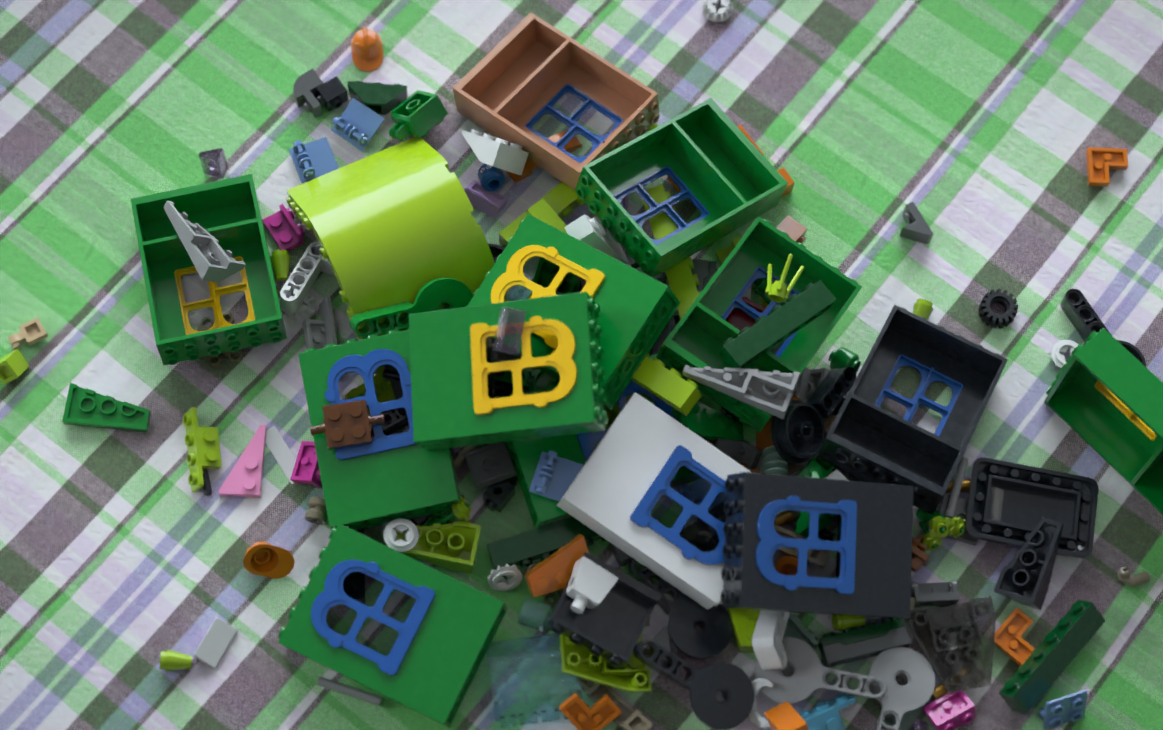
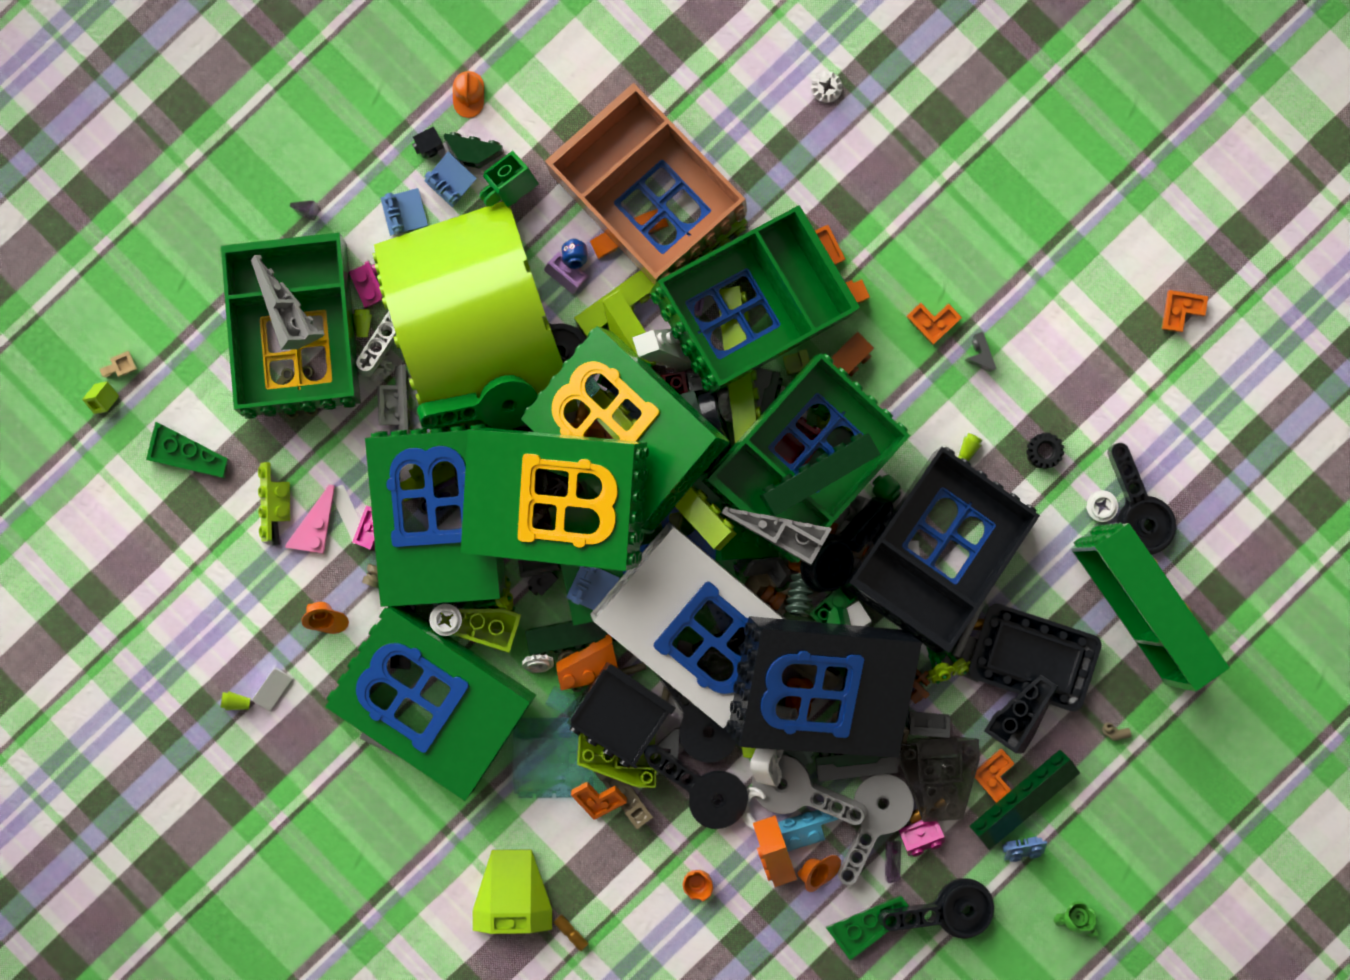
camera: 10 degrees right, 20 degrees up
(306, 92) = (401, 135): dark grey brick -> none
(347, 424) = (404, 516): reddish brown plate -> none
(496, 151) = (579, 232): white slope -> none
(509, 330) = (558, 469): slope -> none
(588, 584) = (609, 694): white torso -> none
(778, 291) = (827, 436): lime plant -> none
(861, 206) = (933, 327): none -> orange plate

